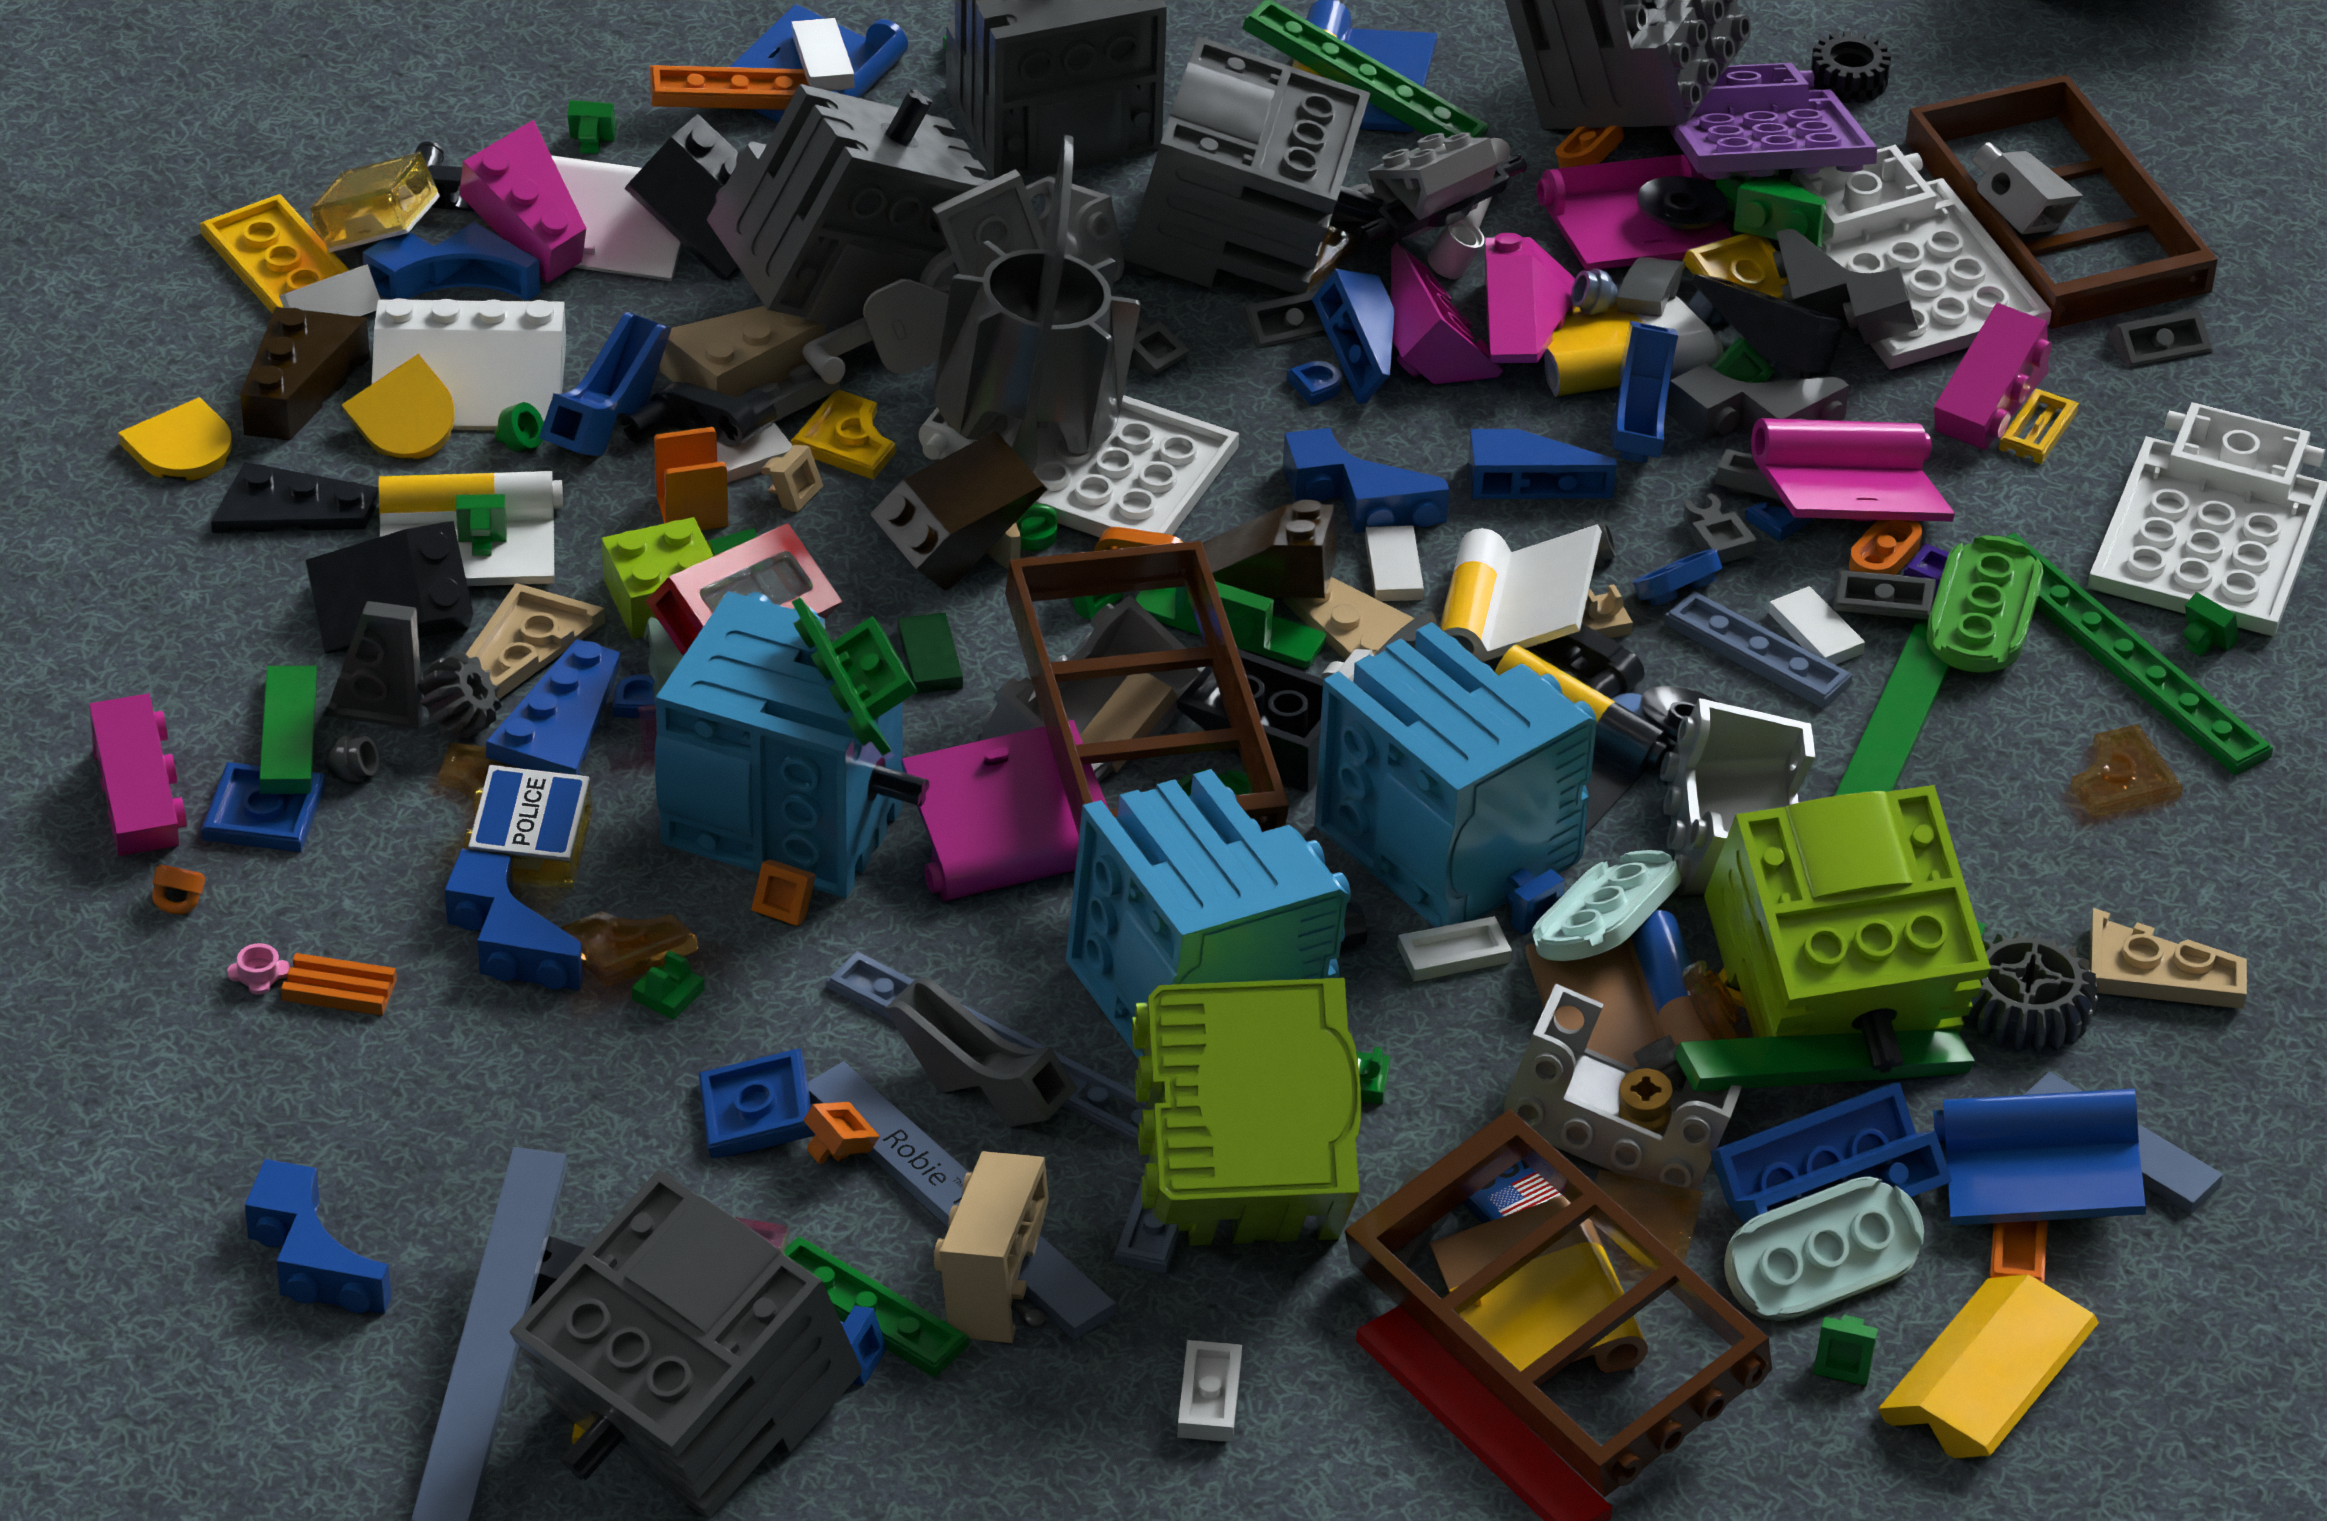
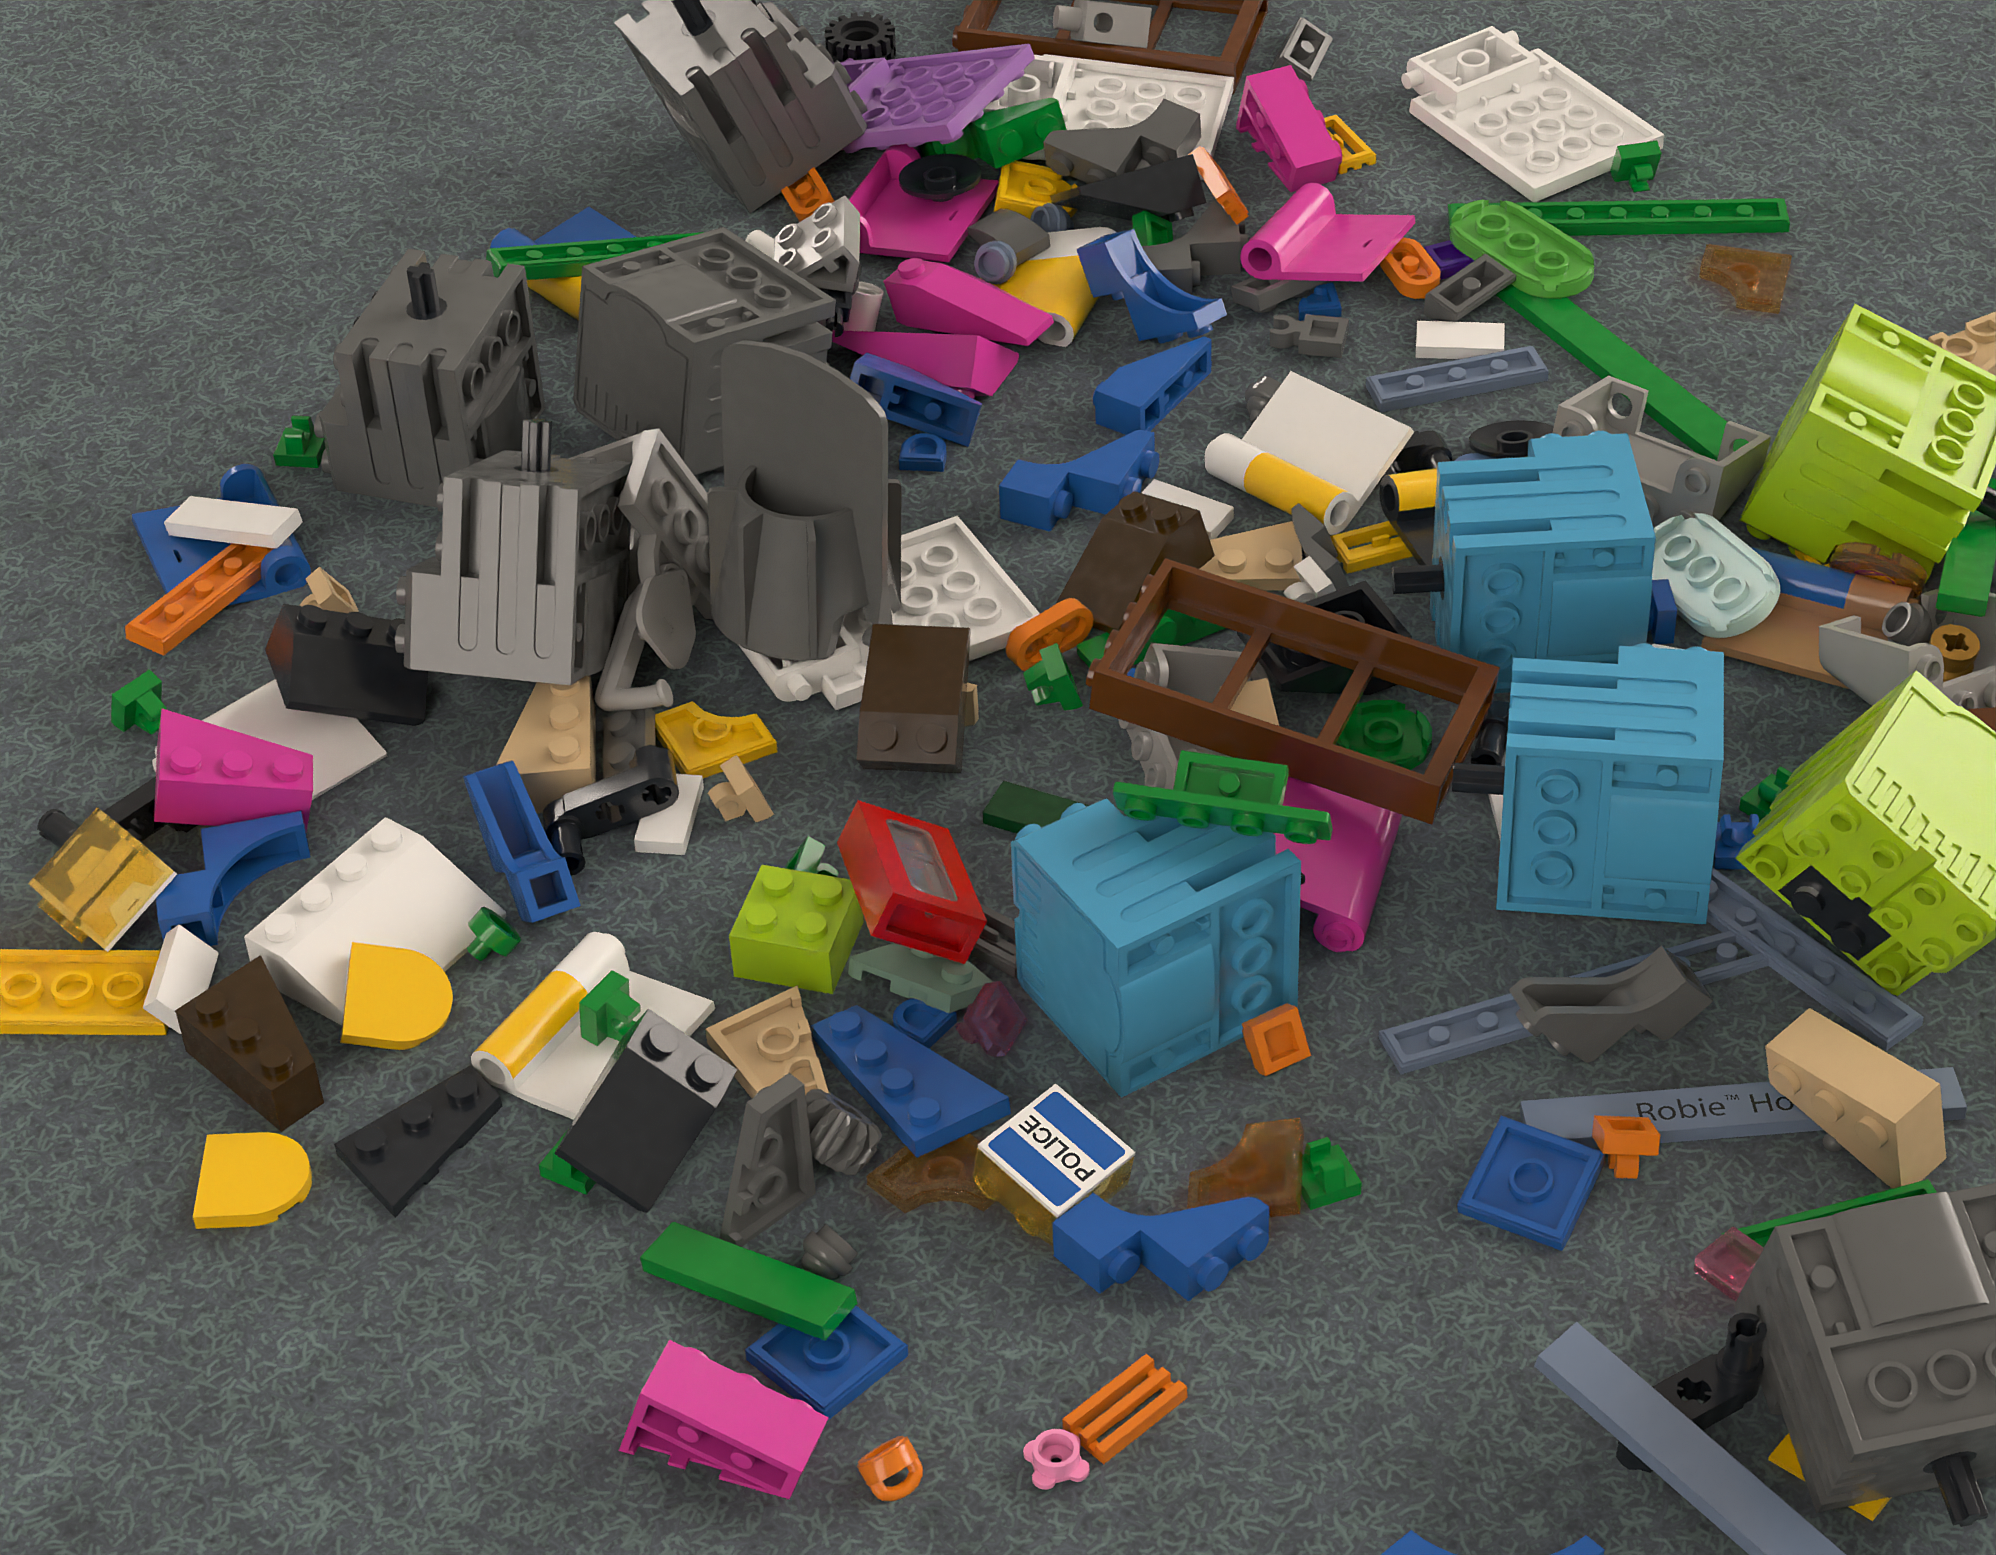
camera: 50 degrees left, 0 degrees up
(691, 478) = (677, 859): orange piece -> none
(1693, 570) = (1348, 370): blue plate -> none
(1821, 355) = (1219, 185): none -> orange tile

